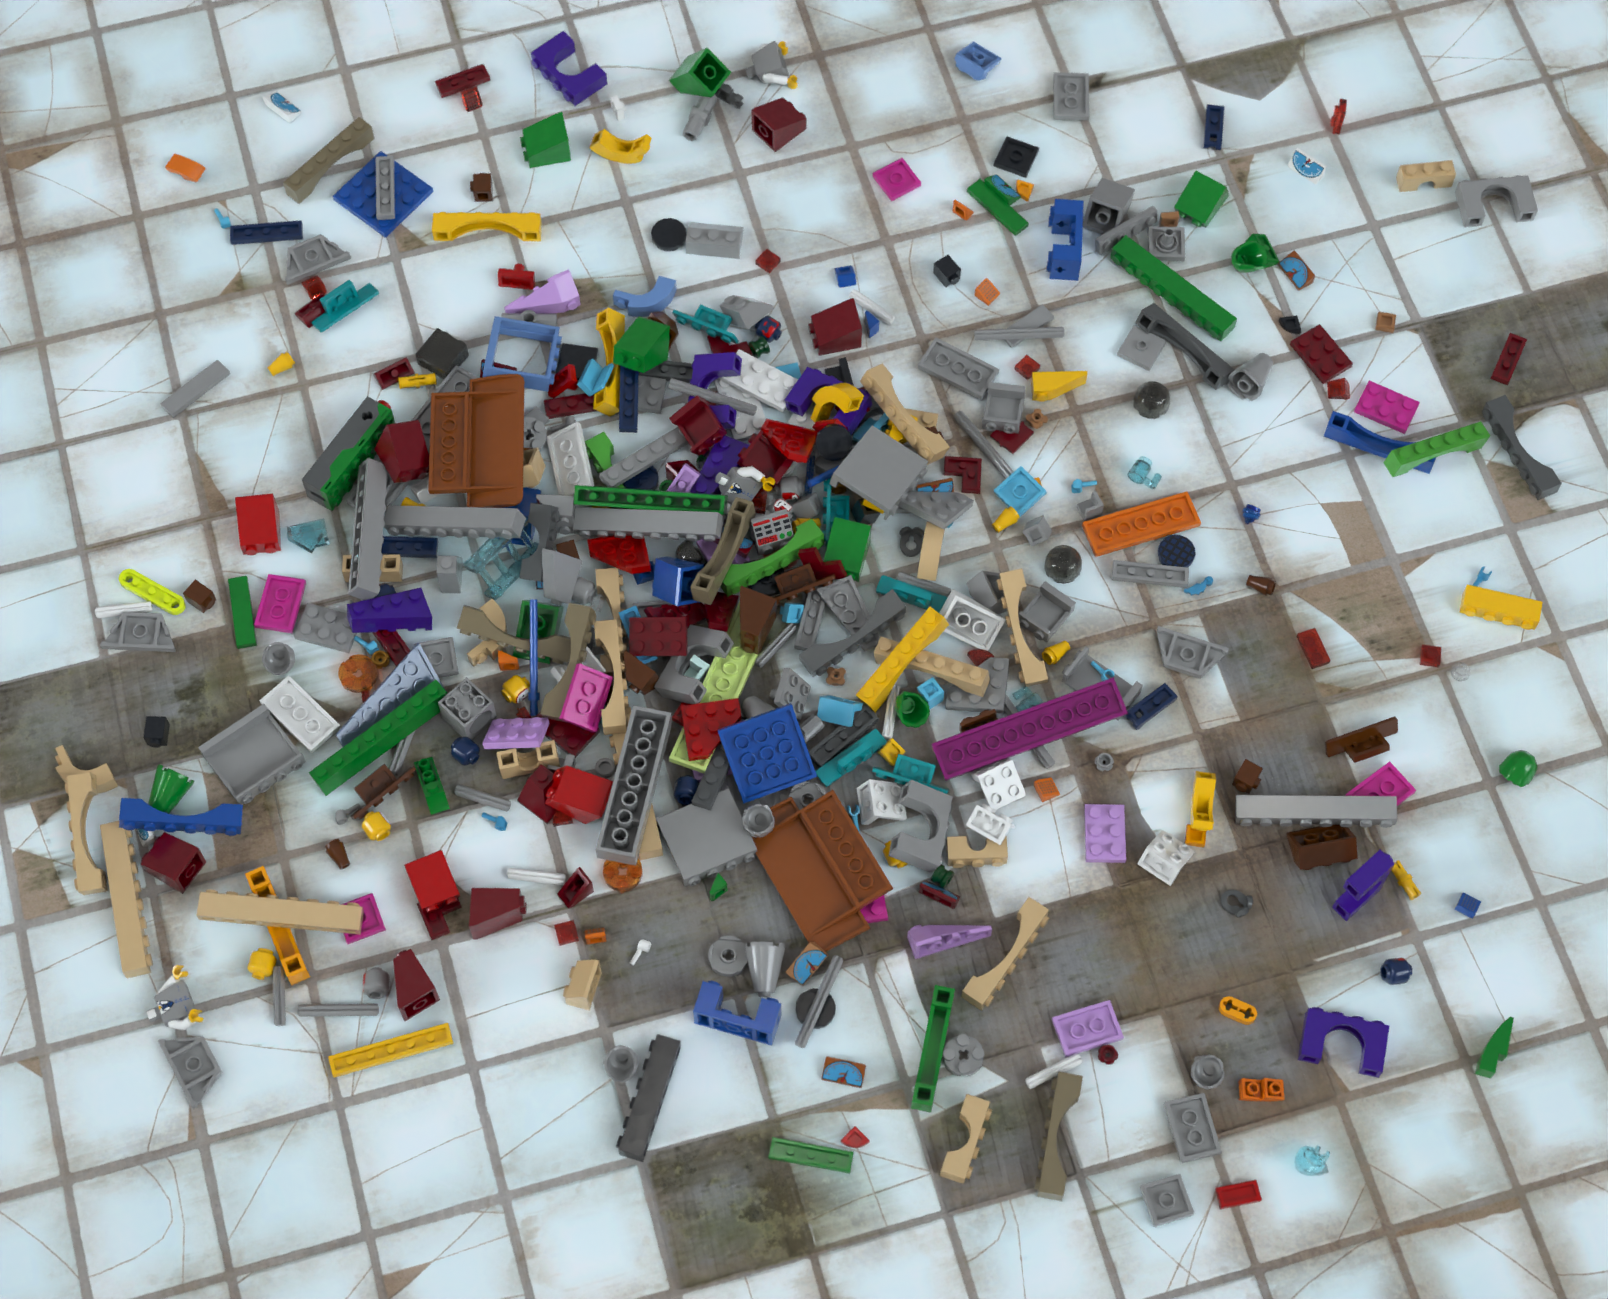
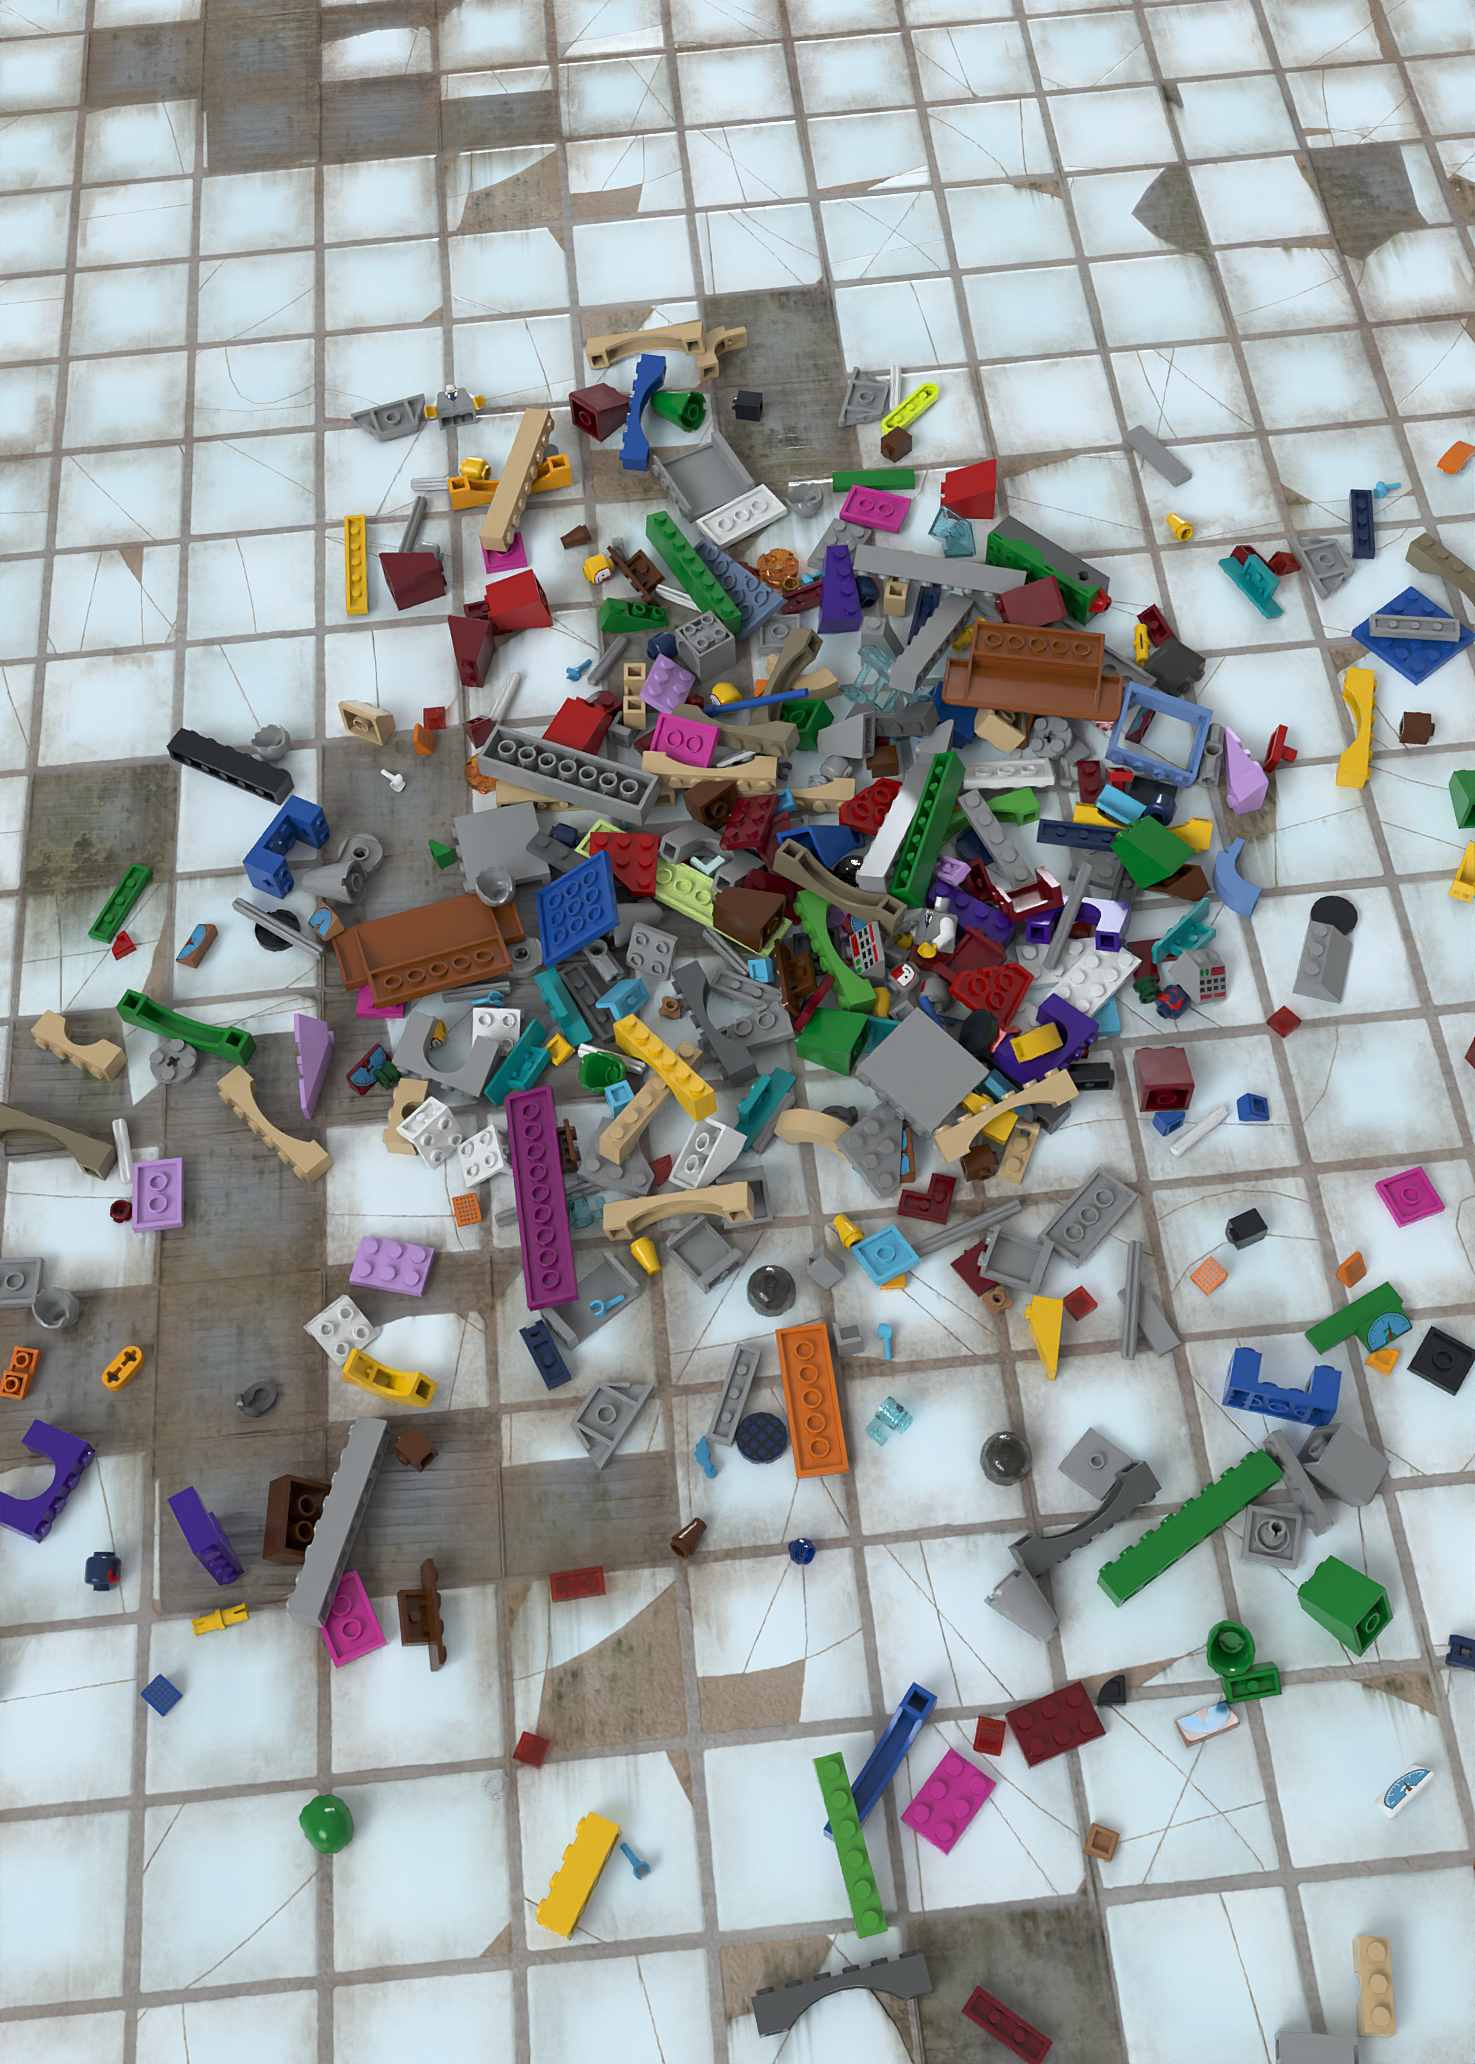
camera: 105 degrees right, 5 degrees down
(126, 900) = (565, 376): tan brick -> none
(595, 347) = (1161, 808): none -> dark blue head
(1104, 757) = (482, 1277): light grey plate -> none
(1169, 219) = (1313, 1548): medium nougat tile -> none

